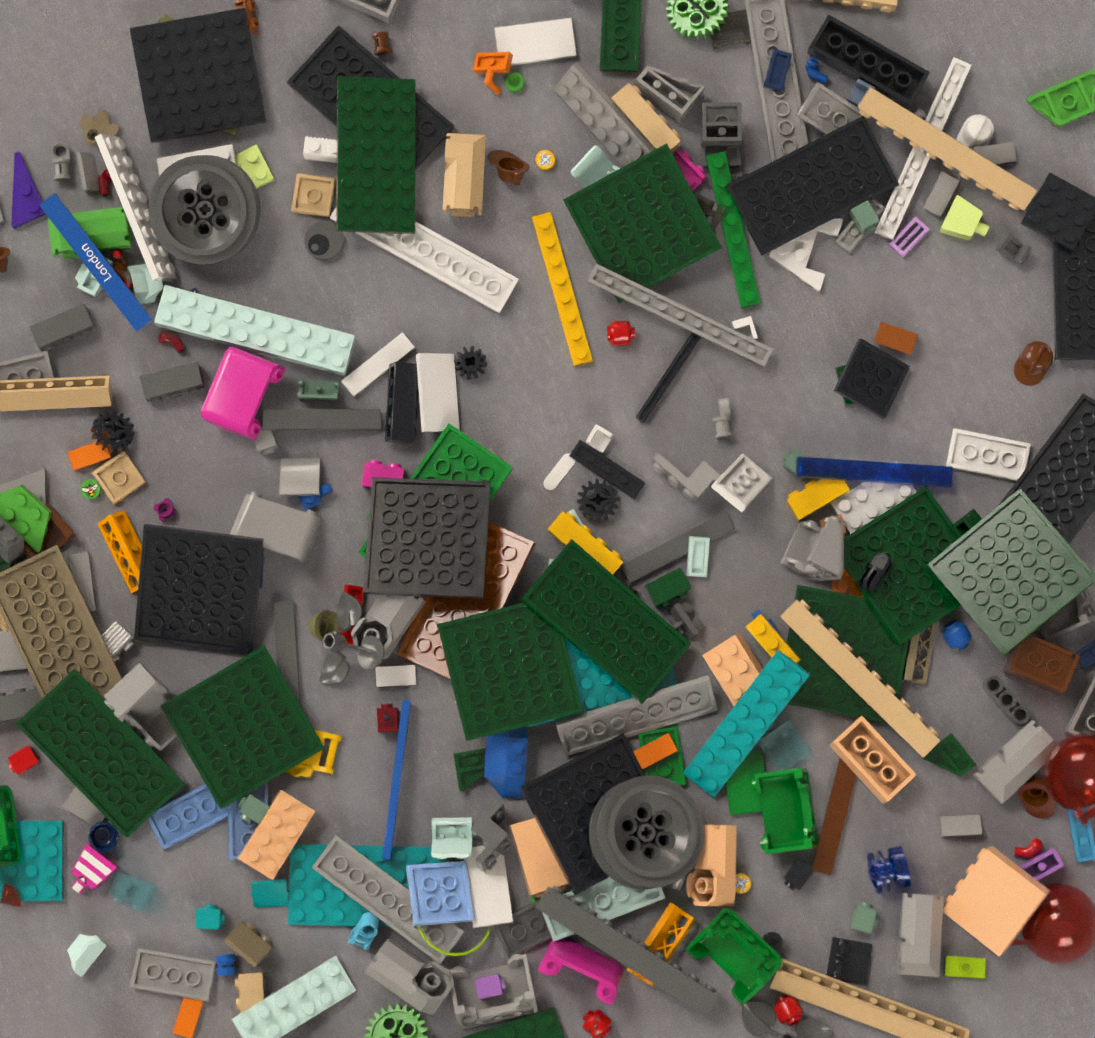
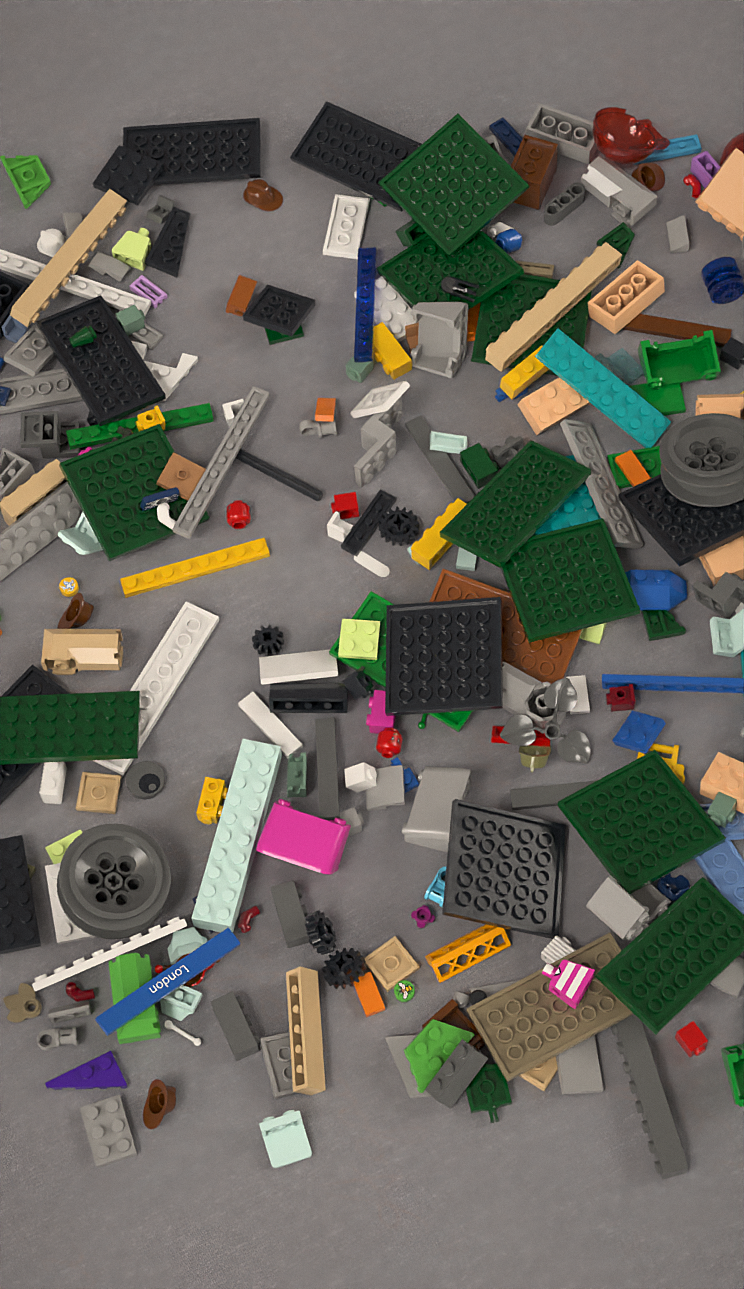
camera: 90 degrees left, 20 degrees down
(71, 266) = (169, 1025): none -> white hinge
(72, 557) = (477, 996): none -> black piece
(73, 642) = (569, 981): none -> dark pink torso
(78, 543) = (461, 999): none -> light grey hinge
(146, 409) = (320, 932): none -> black gear
(177, 756) = (673, 887): none -> dark blue hair
(188, 522) = (436, 889): none -> medium azure piece
(294, 305) = (211, 800): none -> yellow brick
(310, 452) = (360, 777): none -> white brick
(346, 734) = (639, 732): none -> blue plate
(348, 482) = (389, 742): none -> red head
(411, 452) = (358, 683): none -> black brick
(458, 453) = (359, 639): none -> yellowish green plate
(613, 254) = (163, 515): none -> white arm
(625, 445) = (346, 505): none -> red brick
(629, 249) = (161, 497): none -> dark blue tile
(660, 272) = (181, 474): none -> medium nougat plate
(728, 246) = (150, 419): none -> yellow brick
(743, 426) = (325, 409): none -> orange tile
(836, 165) = (83, 336): none -> dark green cone
(967, 259) = (169, 245): none -> black wing
(976, 630) = (497, 228): none -> white arm

